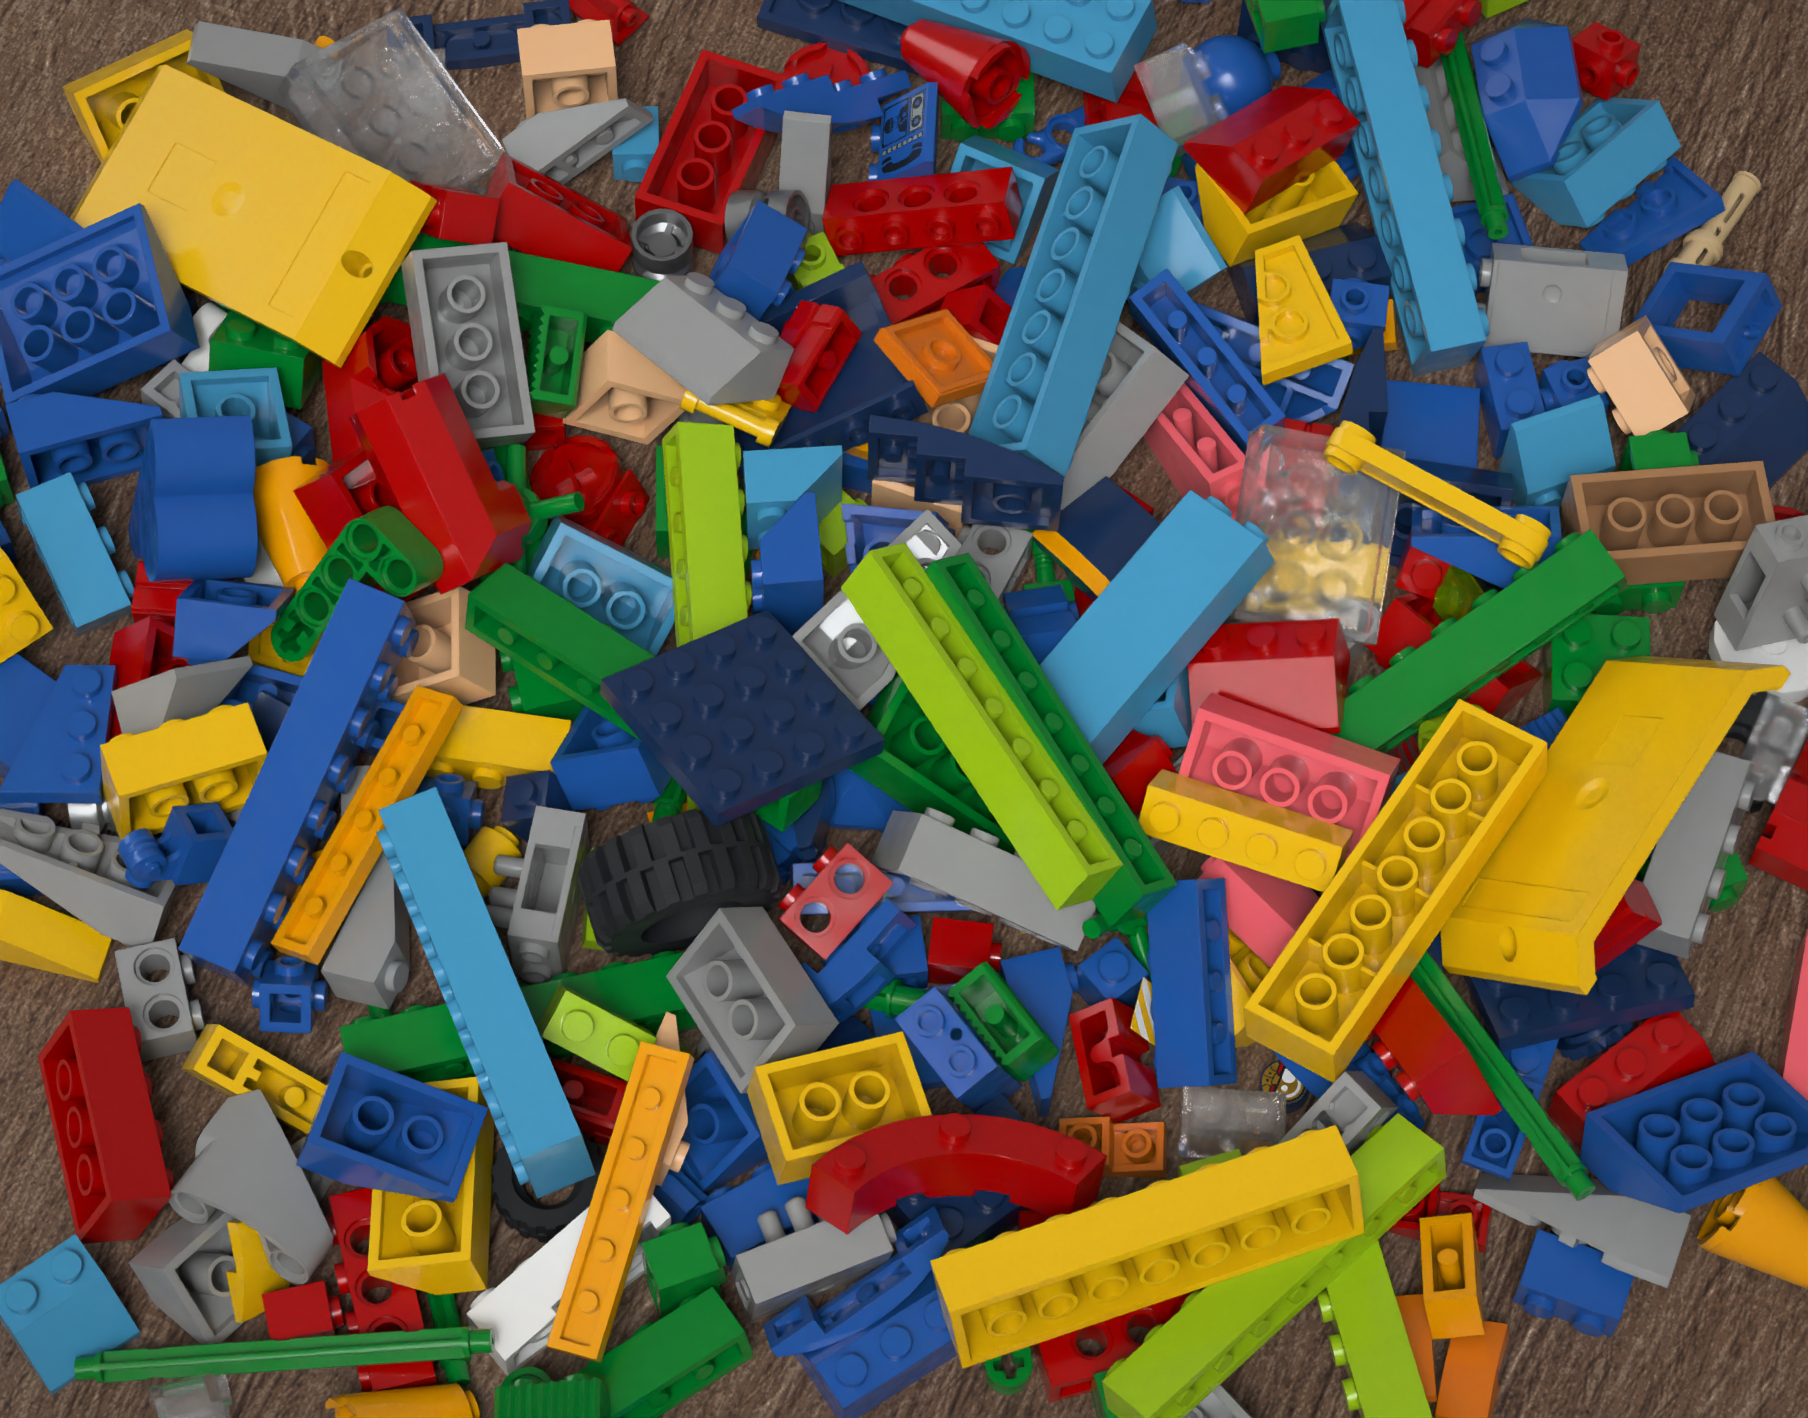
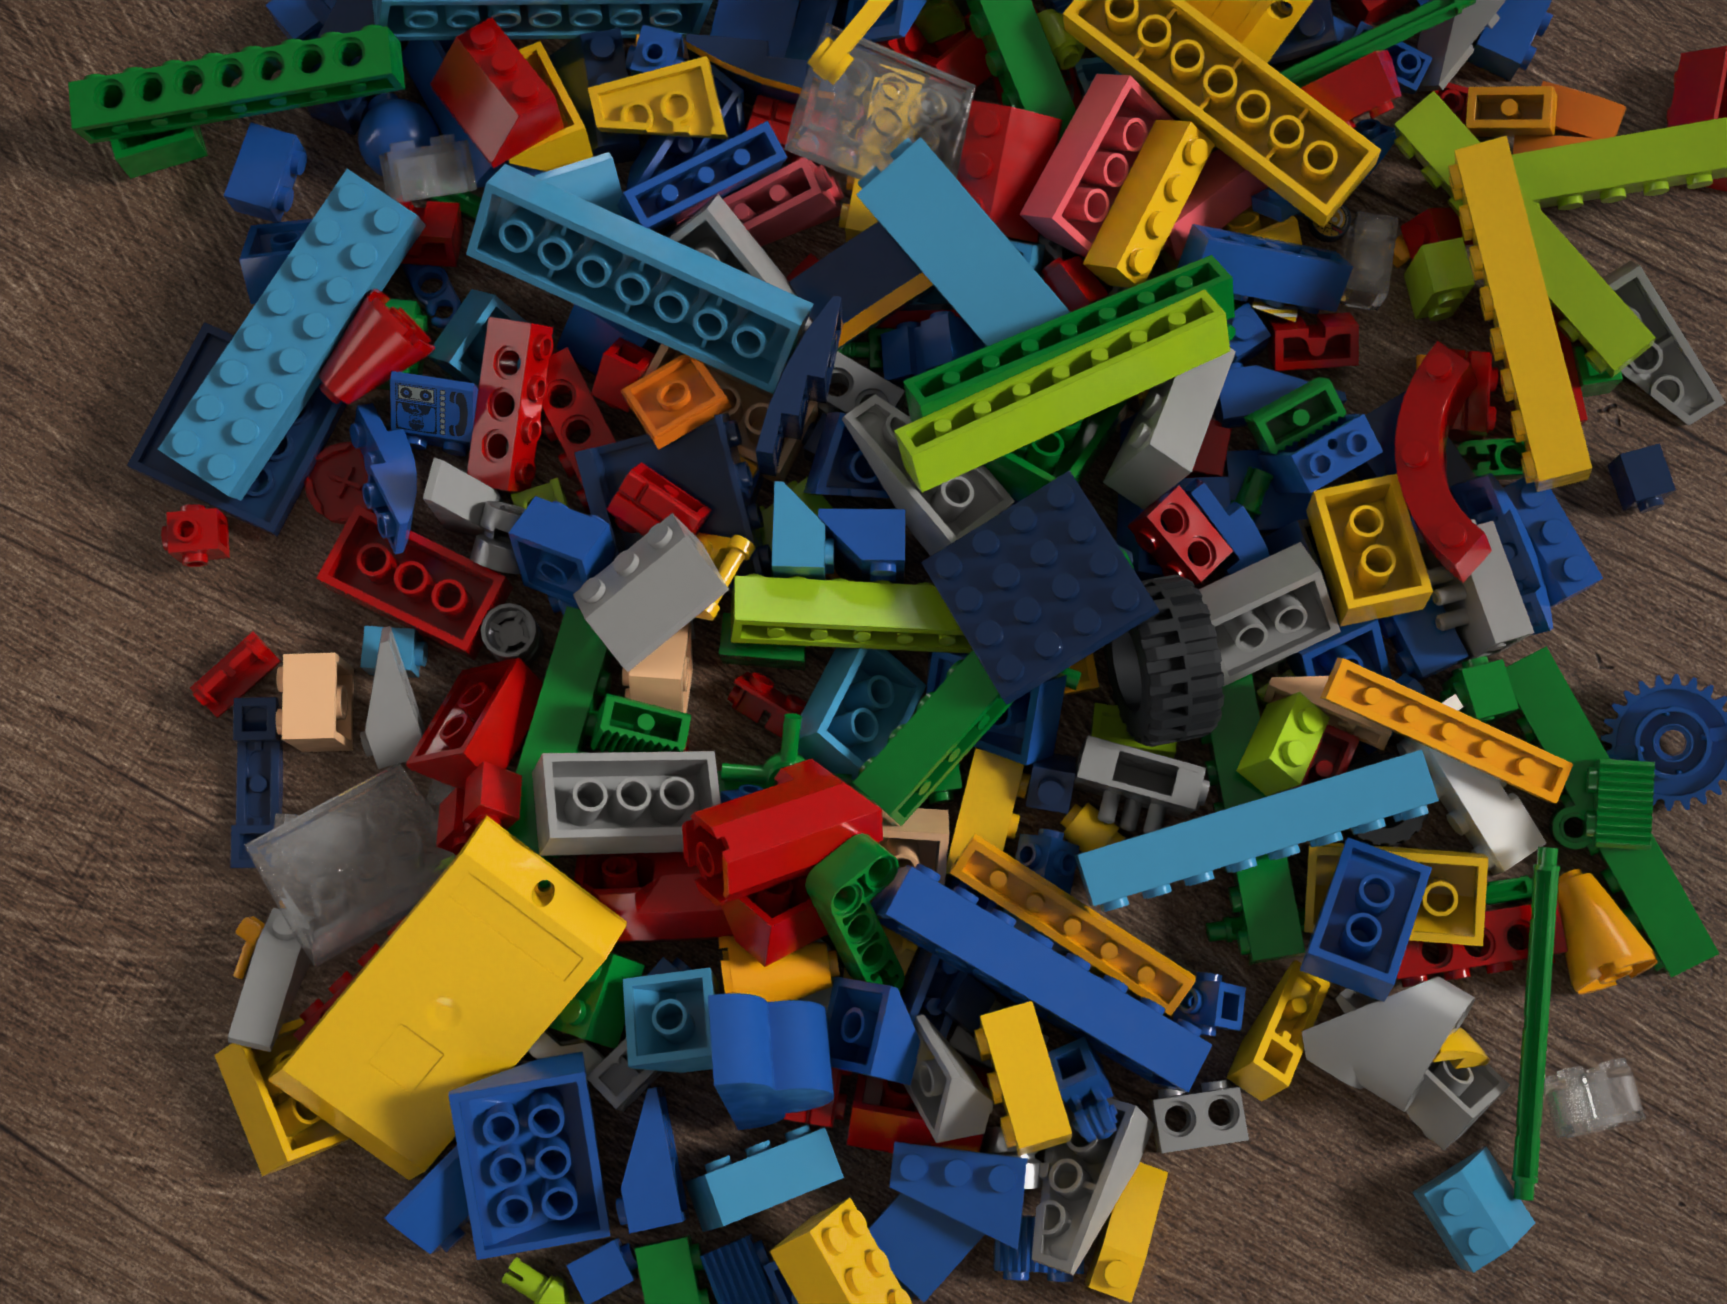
camera: 80 degrees left, 15 degrees up
(105, 1125) = (1327, 1165): red brick -> none
(302, 1312) = (1494, 1009): red brick -> none
(373, 946) = (1171, 928): light grey slope -> none
(578, 466) = (732, 726): red tile -> none
(1129, 1147) = (1376, 356): orange slope -> none
(1352, 1105) = (1400, 175): light grey brick -> none

